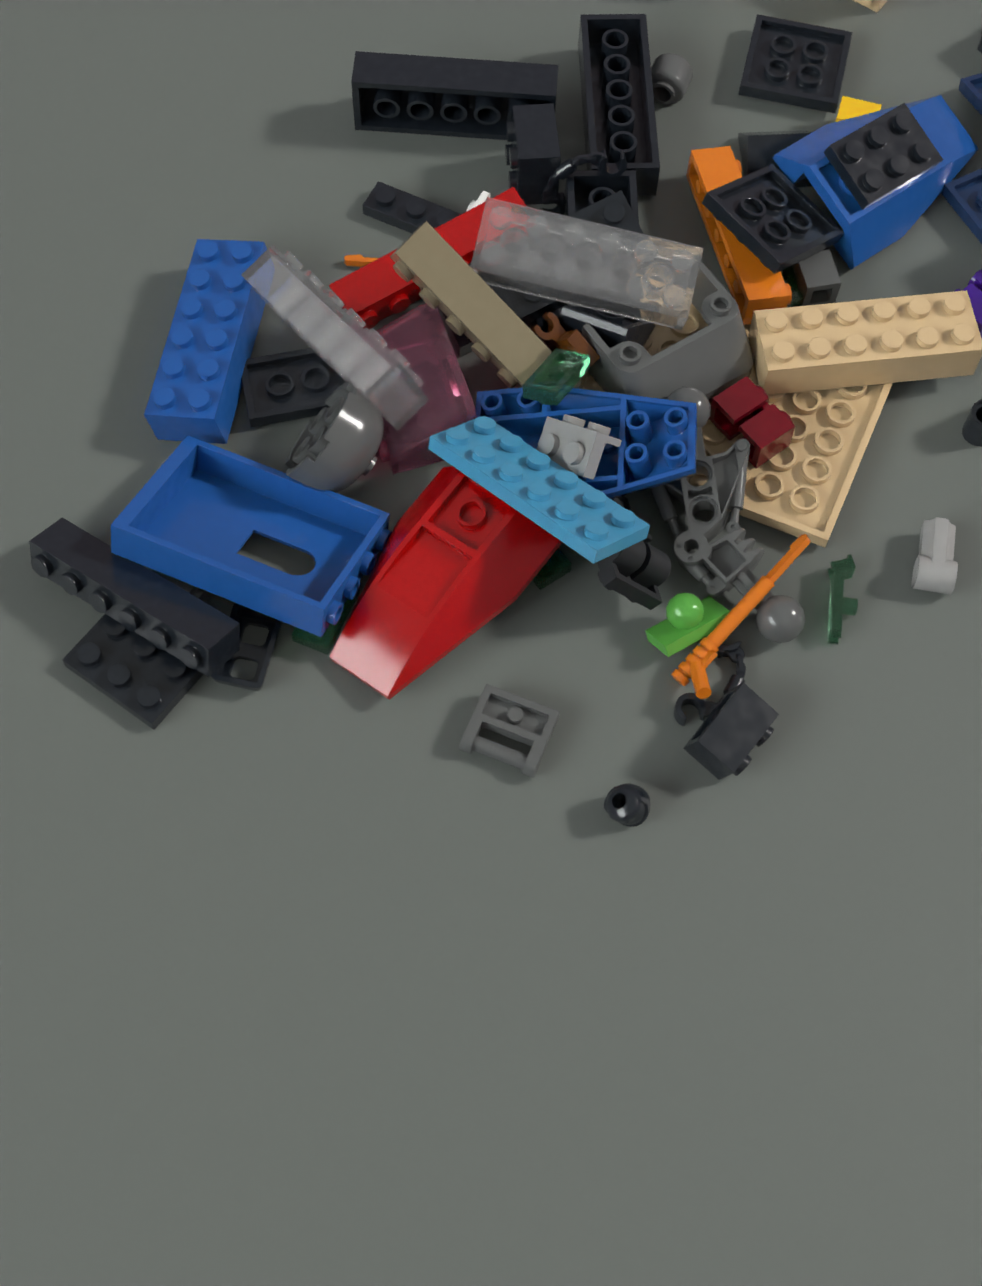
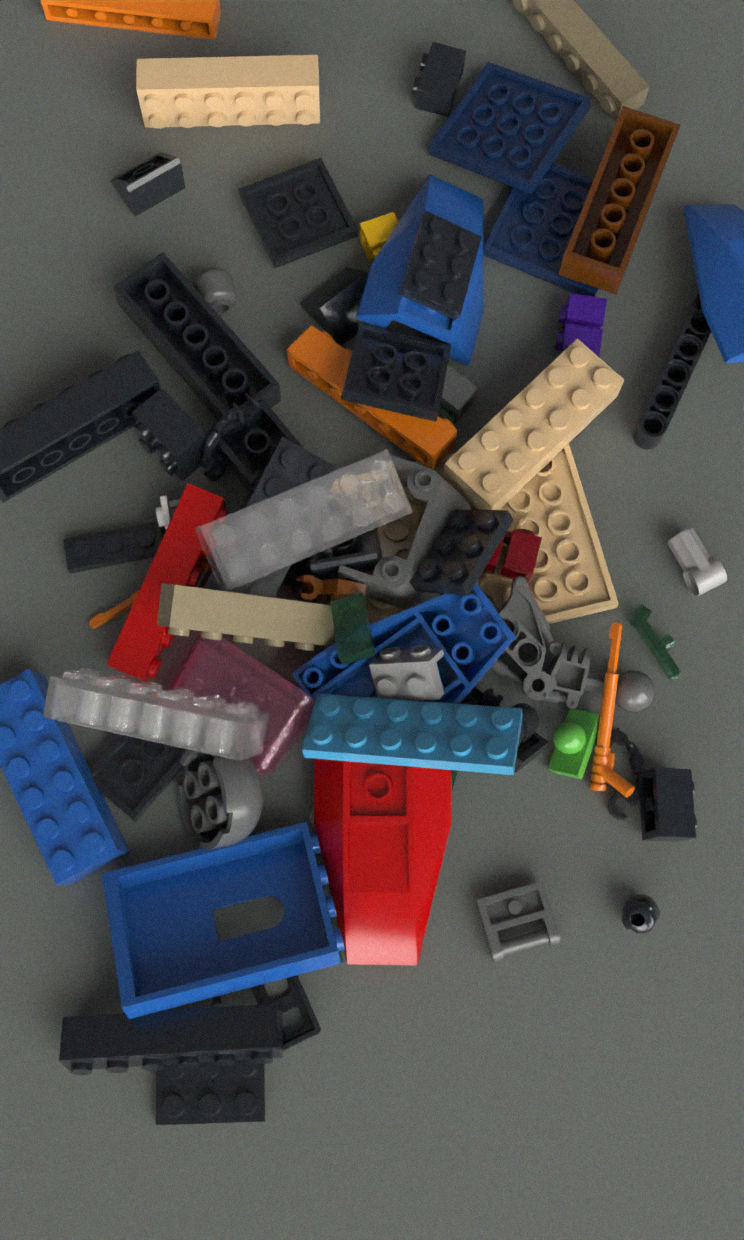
camera: 40 degrees left, 10 degrees up
(707, 379) = (461, 551): none -> black plate

